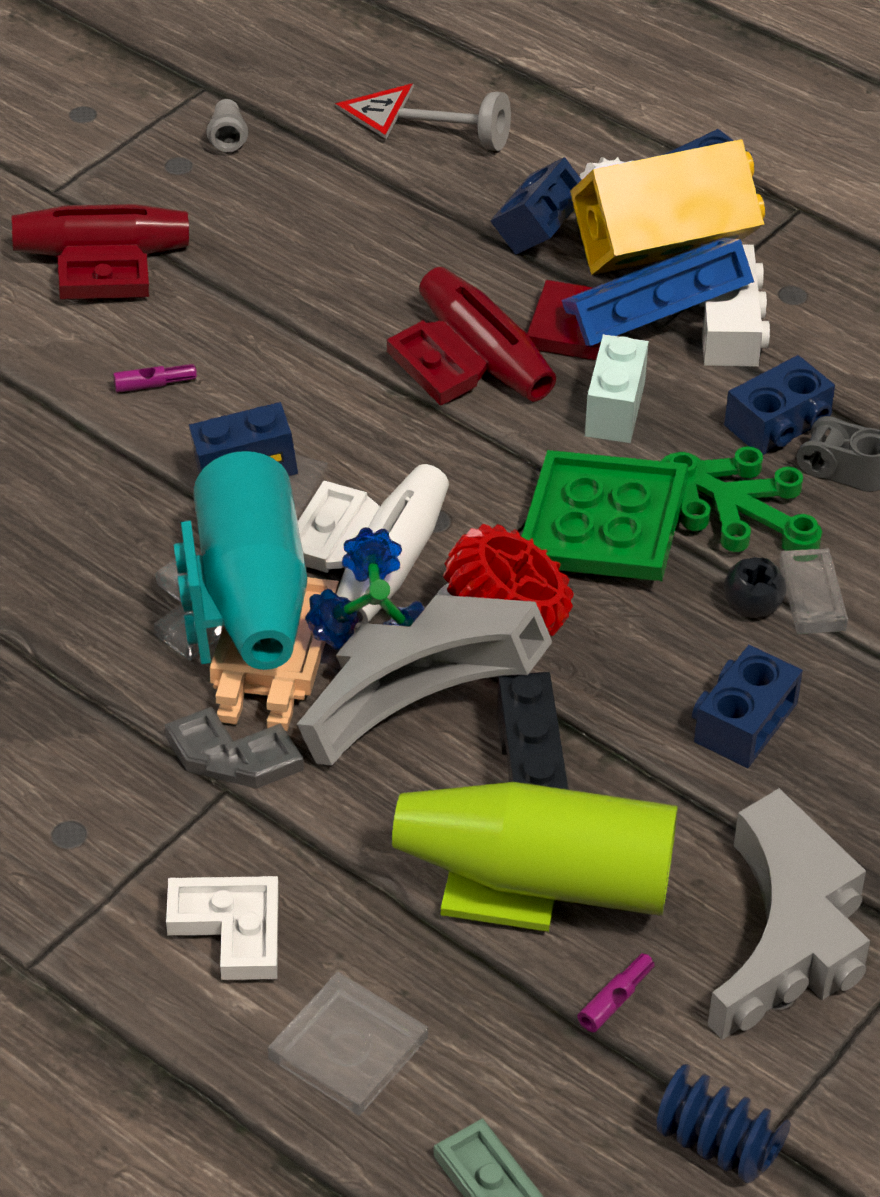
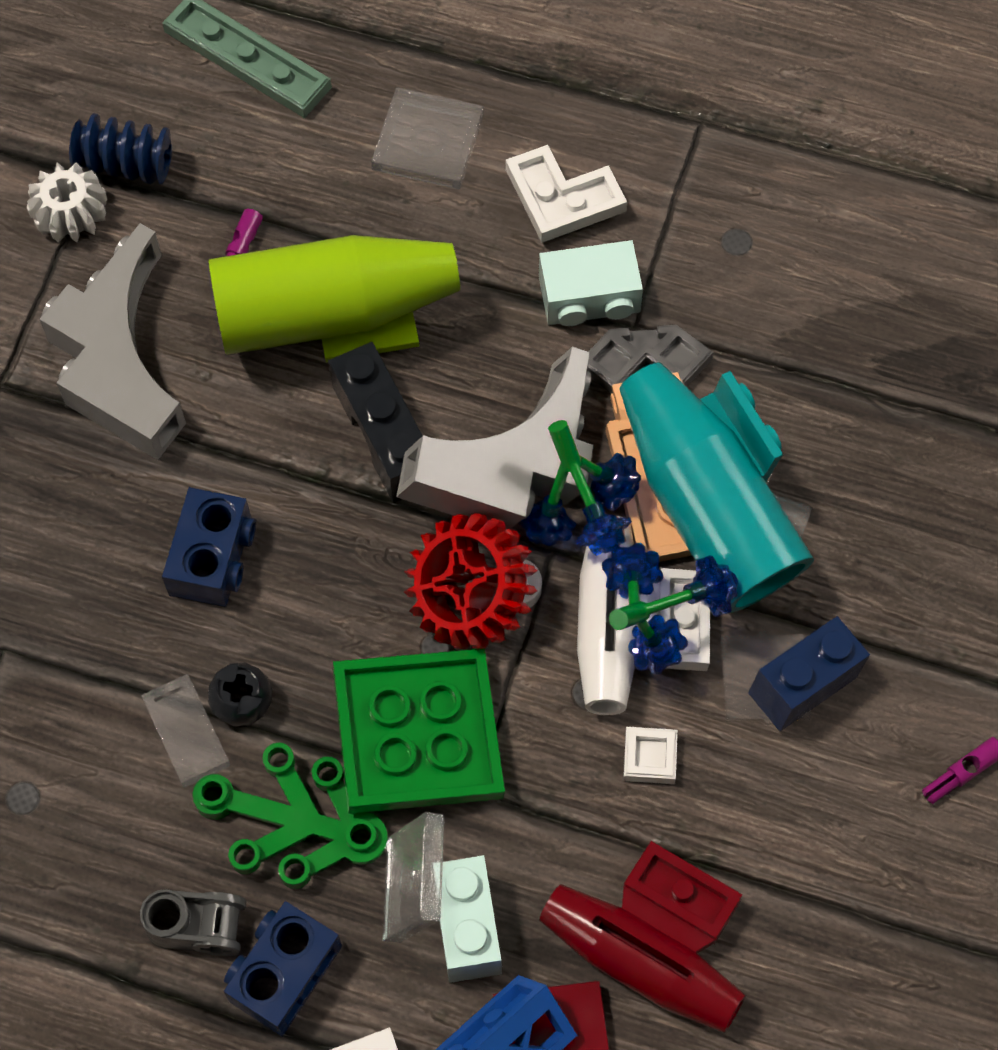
camera: 160 degrees right, 20 degrees up
(252, 817) = (590, 283): none -> light aqua piece
(361, 481) = (656, 641): none -> clear blue plant
(403, 456) = (650, 755): none -> white tile
(651, 404) = (413, 878): none -> clear tile
(806, 1090) = (66, 202): none -> white gear

